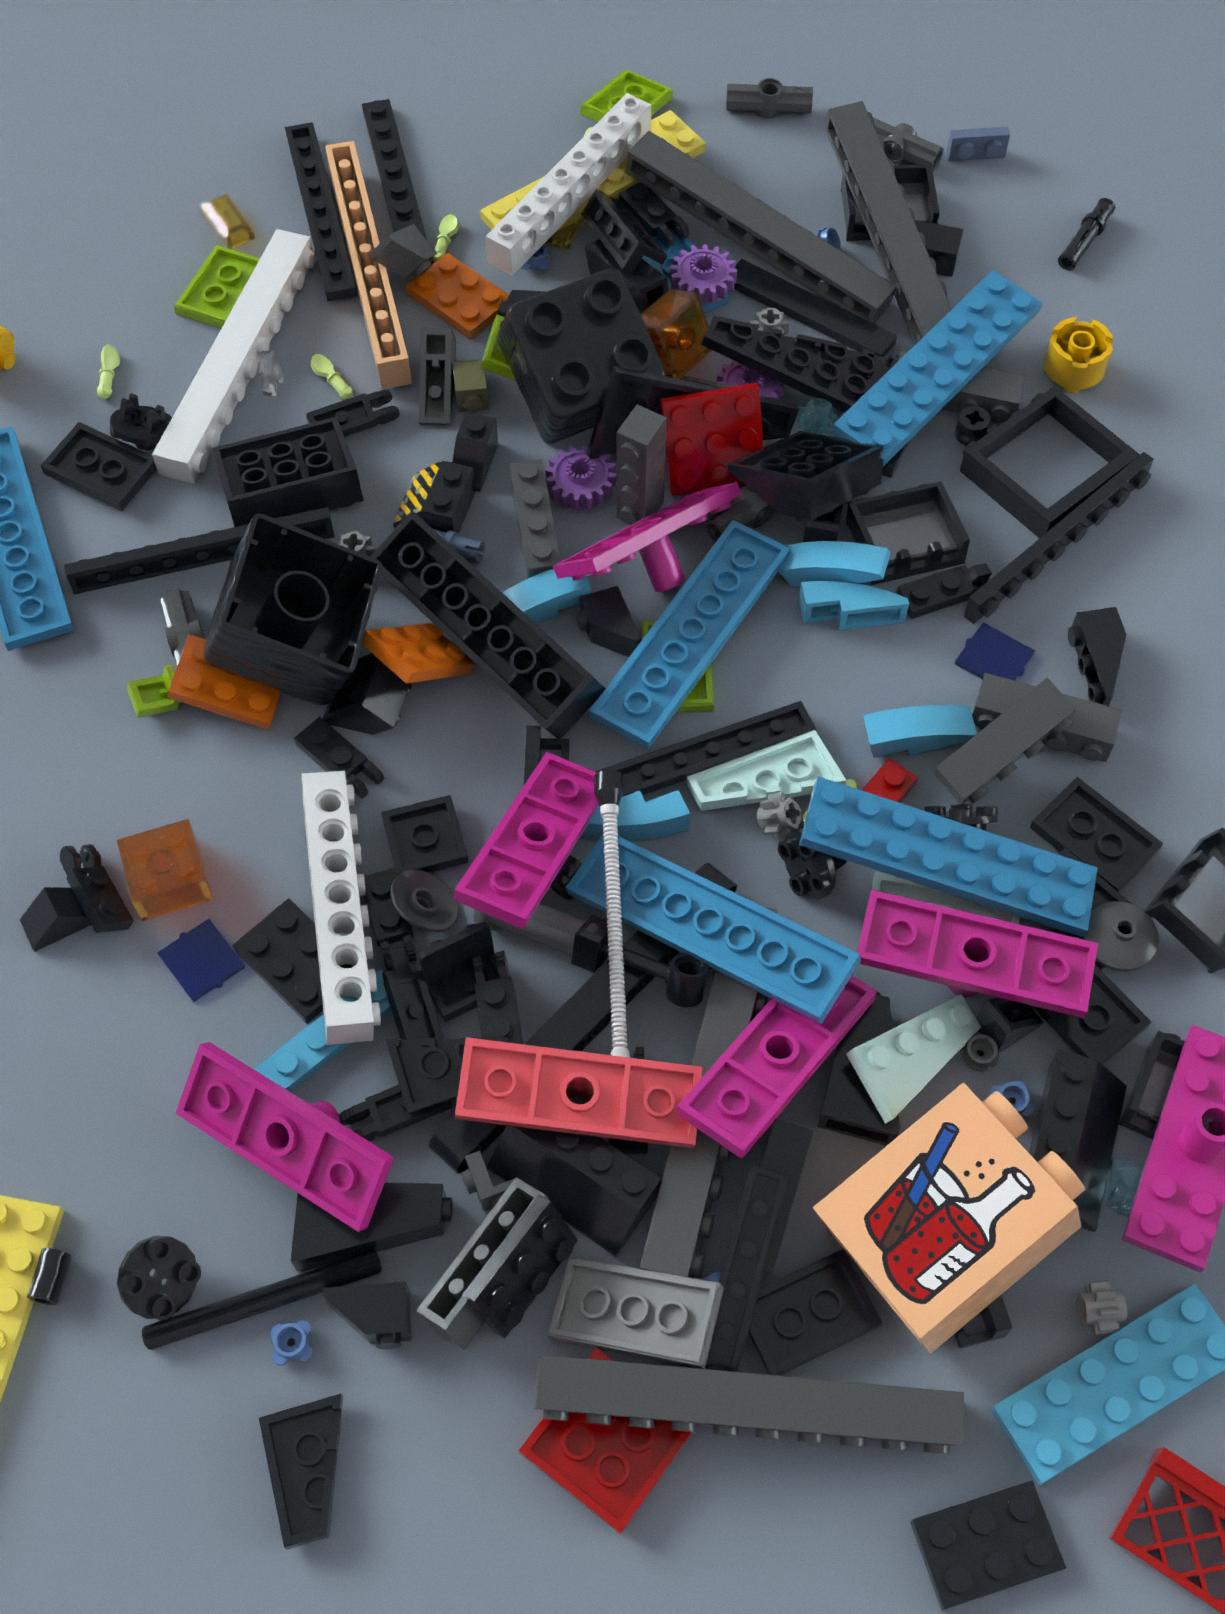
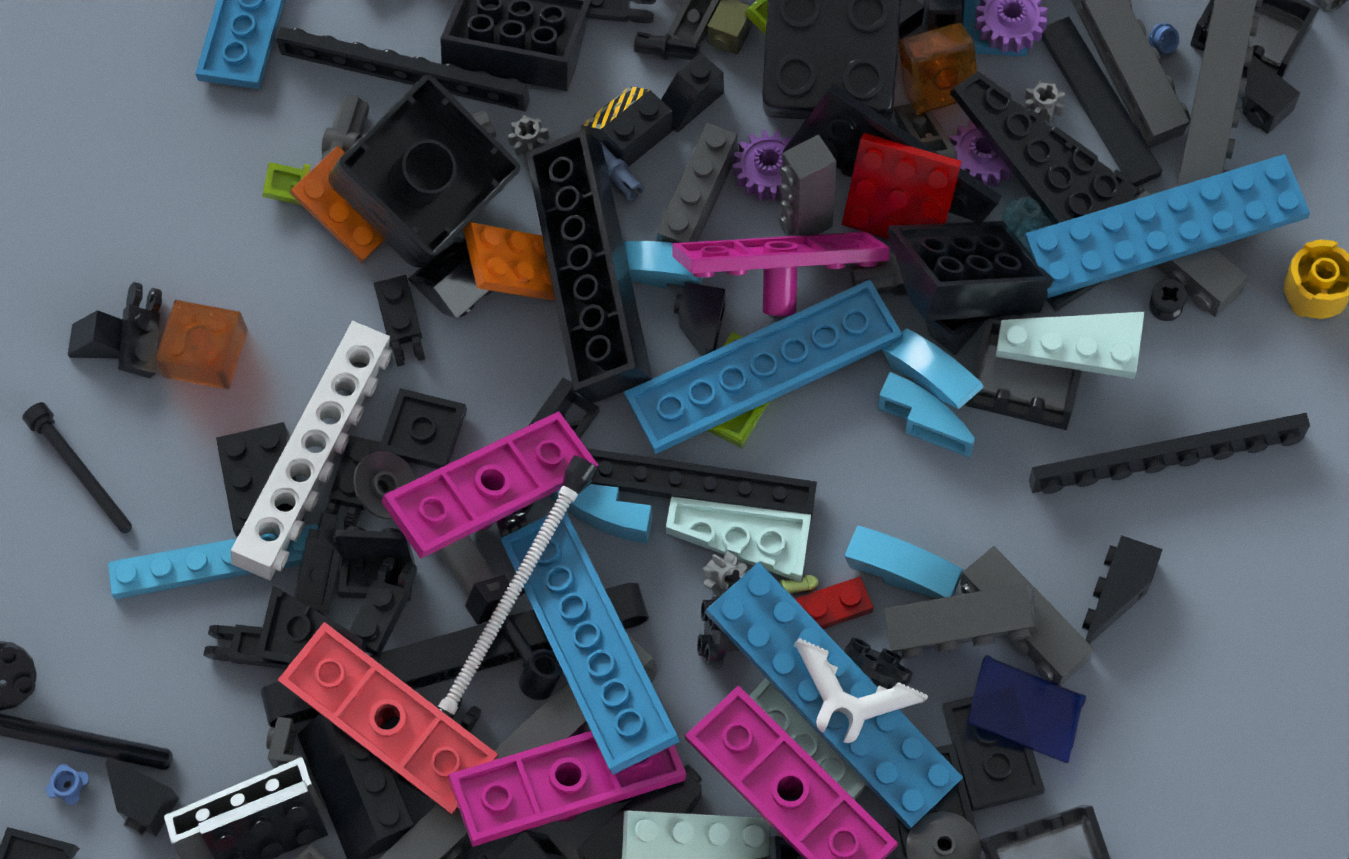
camera: 35 degrees right, 5 degrees up
(43, 1020) = (40, 419): none -> black piece
(201, 960) = (187, 436): clear blue piece -> none
(285, 1135) = (148, 620): dark pink plate -> none
(401, 1217) = (170, 717): black slope -> none
(426, 427) = (665, 46): none -> black axle
(937, 483) = (1081, 342): none -> light aqua wing
(943, 589) = (1024, 444): black hinge -> none
(967, 854) = (854, 708): none -> white piece
(994, 654) = (1027, 534): clear blue piece -> none
(1011, 495) = (1209, 320): black window -> none
(1101, 788) = (1026, 709): none -> clear blue piece

